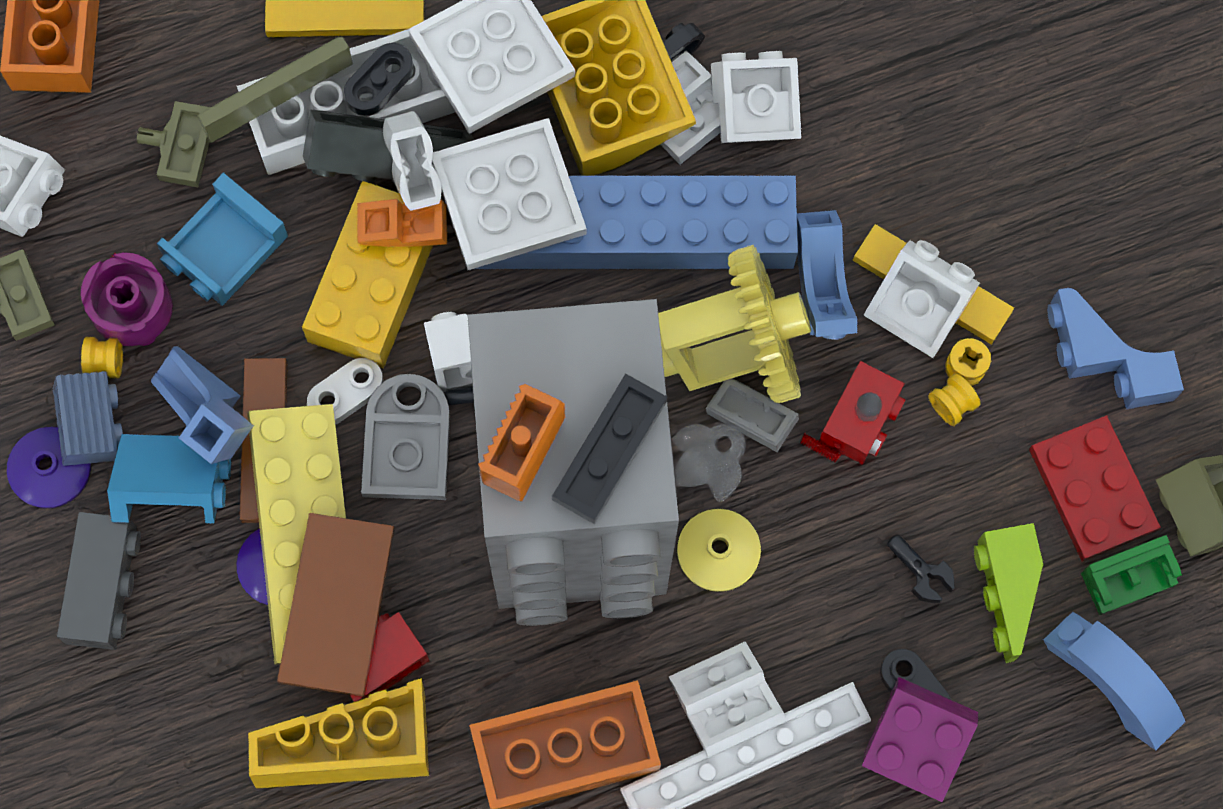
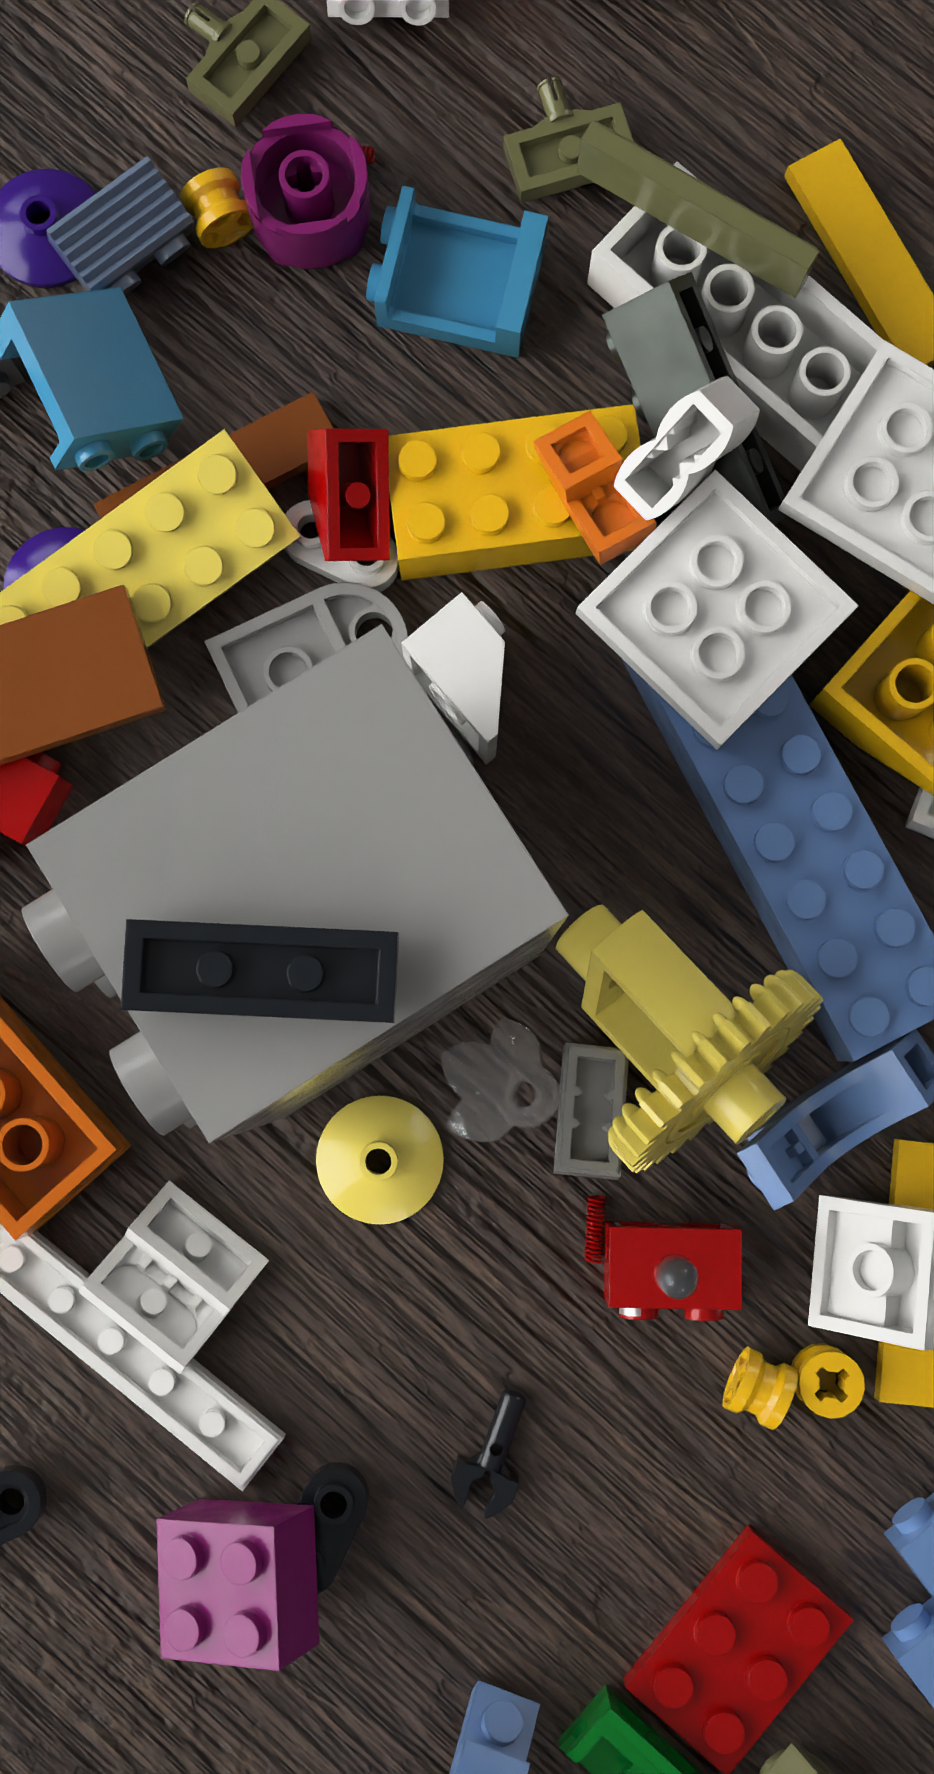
camera: 65 degrees right, 10 degrees up
(203, 405) = (212, 369): medium blue arch -> none
(321, 362) = (350, 492): none -> red slope
(375, 79) = (787, 337): black plate -> none
(522, 442) = (181, 823): orange brick -> none
(1012, 575) = (535, 1603): lime slope -> none

